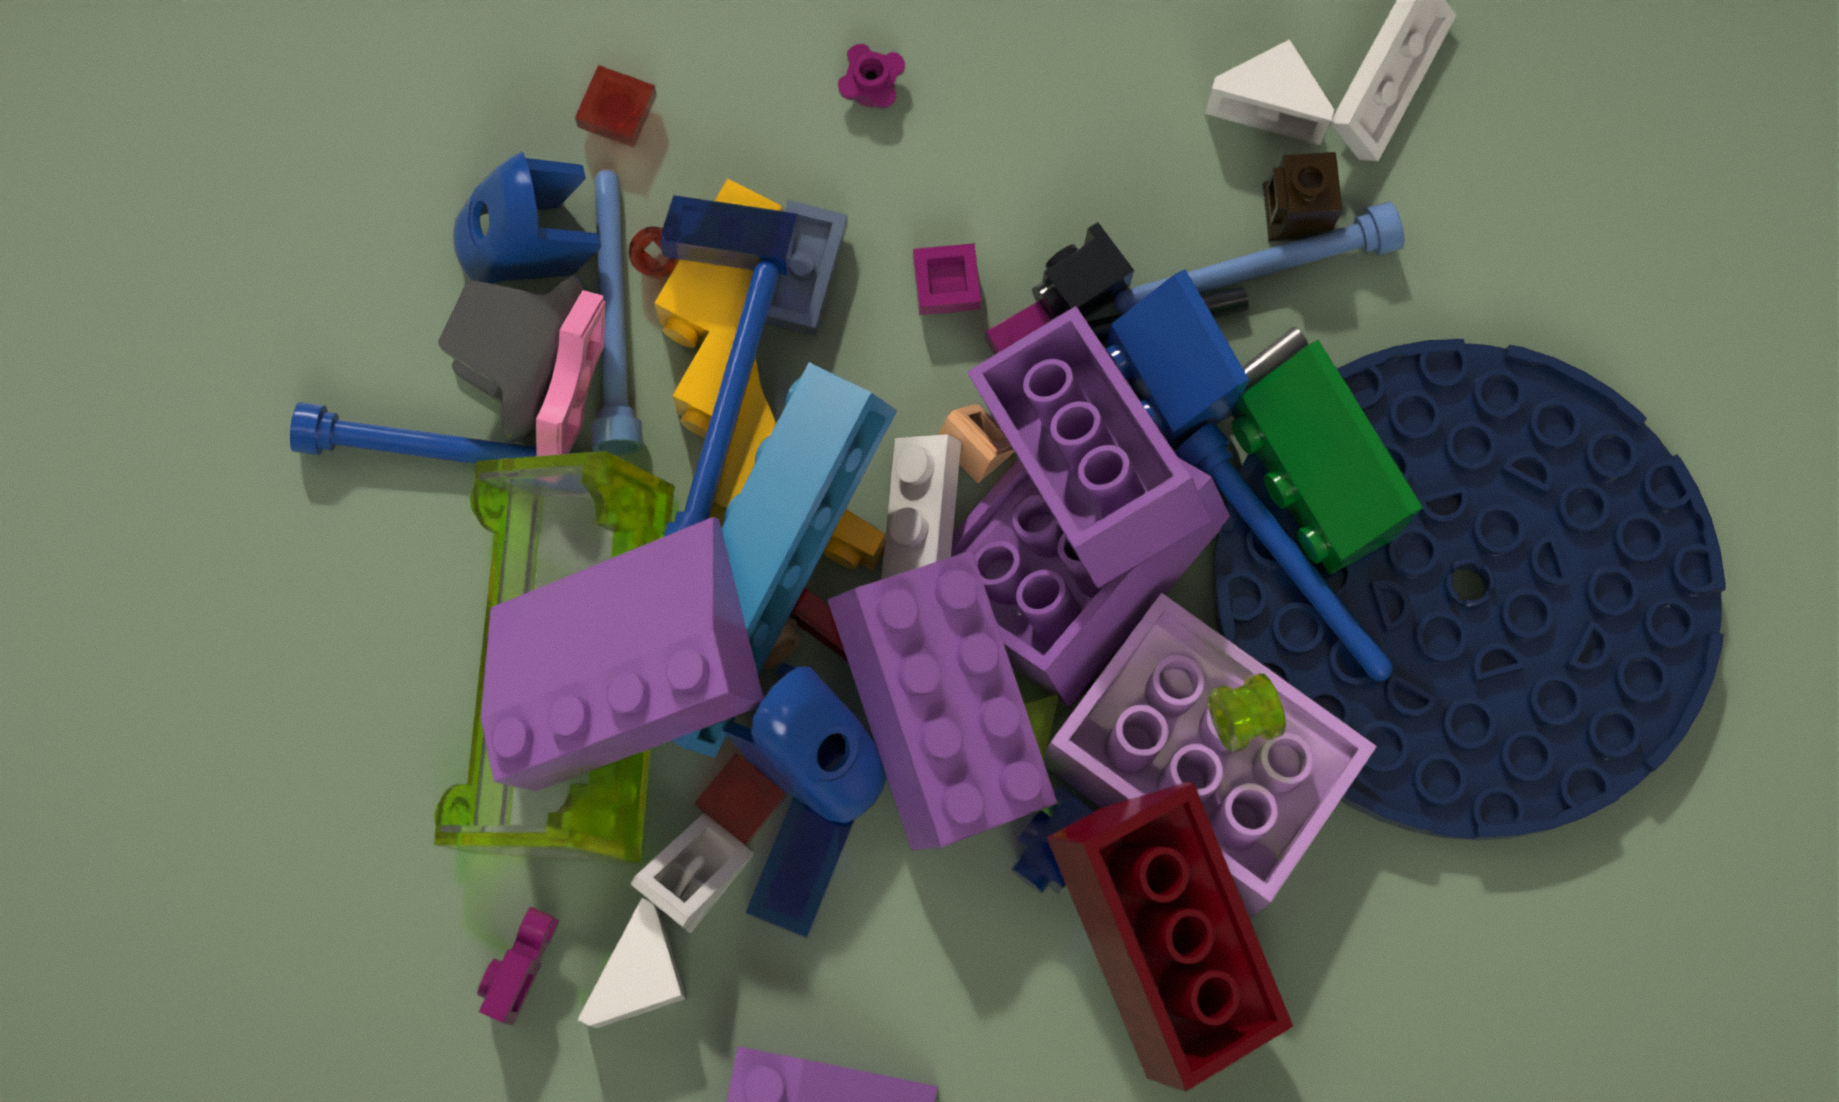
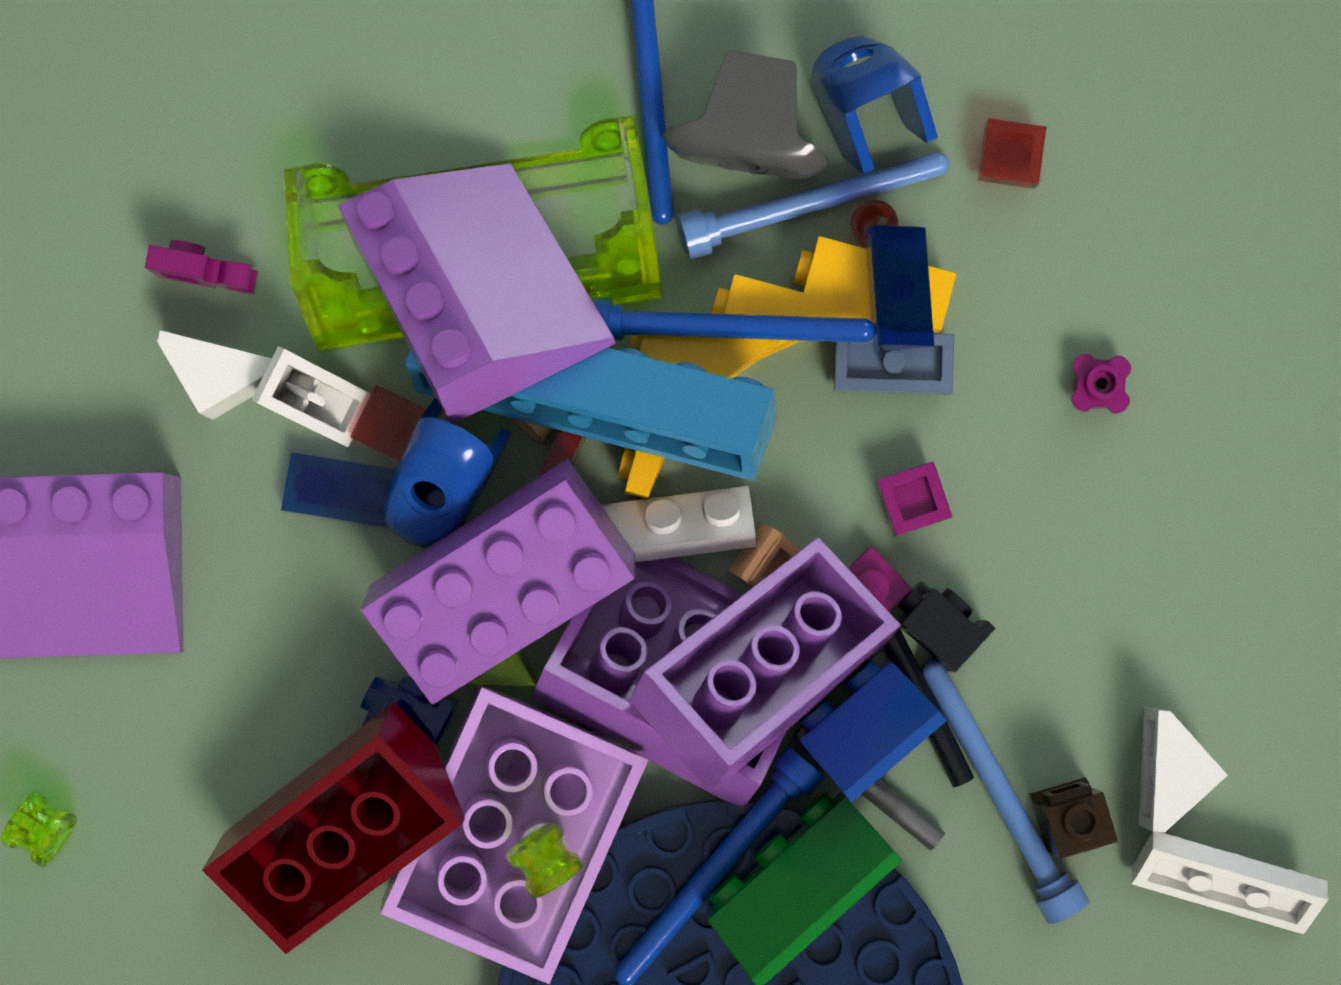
camera: 80 degrees right, 10 degrees up
(577, 356) = (709, 180): bright pink tile -> none

